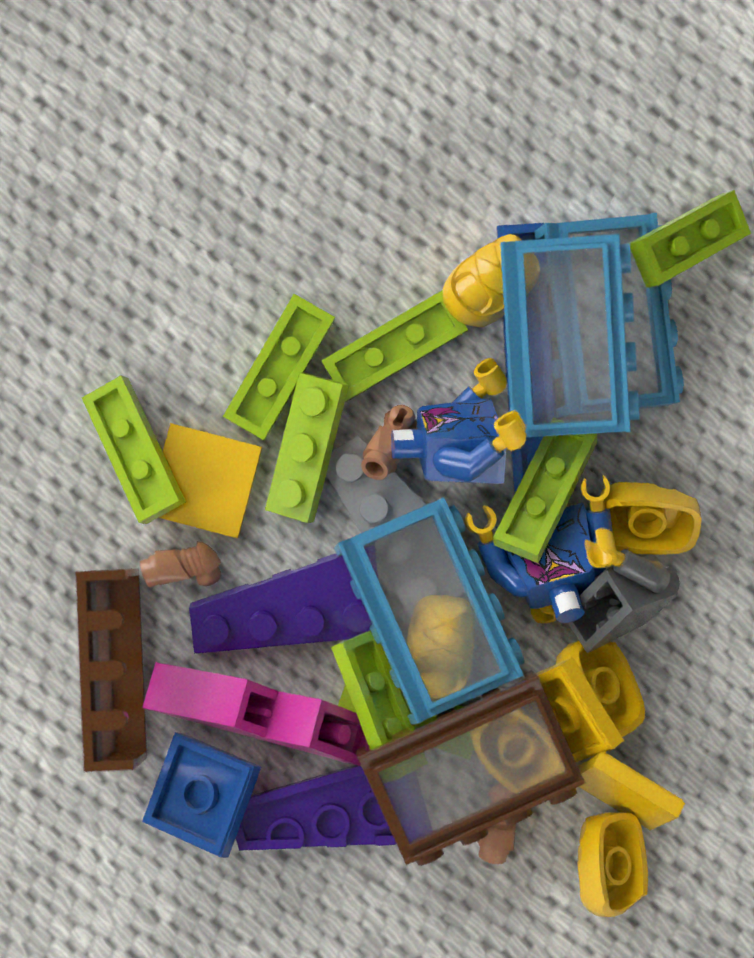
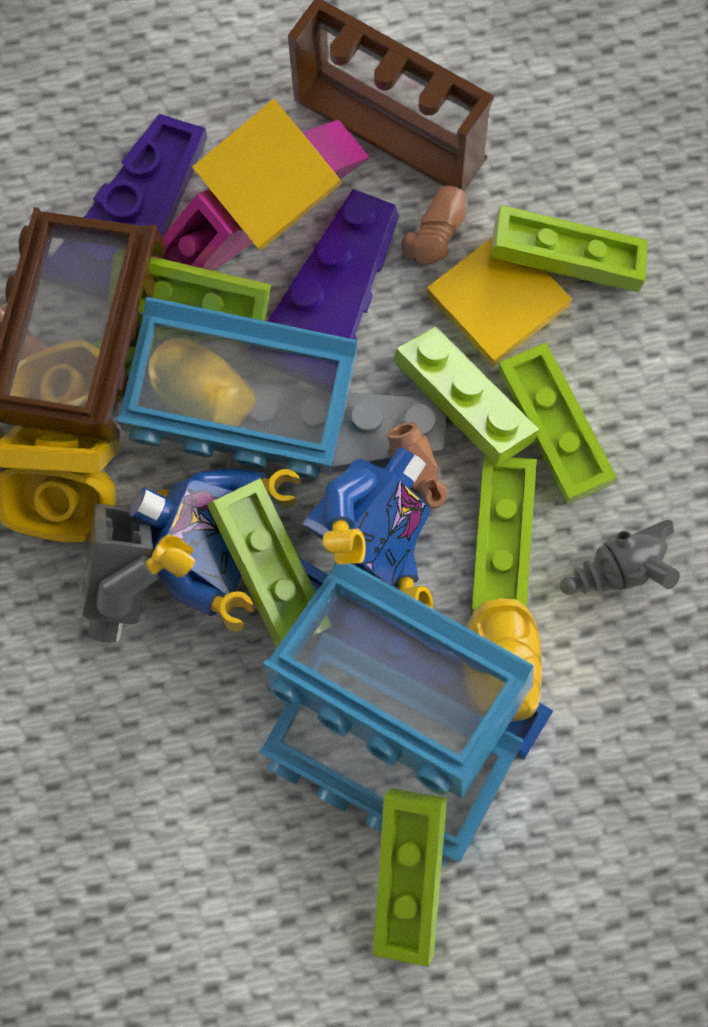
camera: 130 degrees right, 15 degrees down
(201, 794) = (215, 103): blue tile -> none
(256, 704) = (267, 174): none -> yellow tile
(350, 244) = (627, 562): none -> dark grey piece
(652, 518) = (172, 653): yellow piece -> none

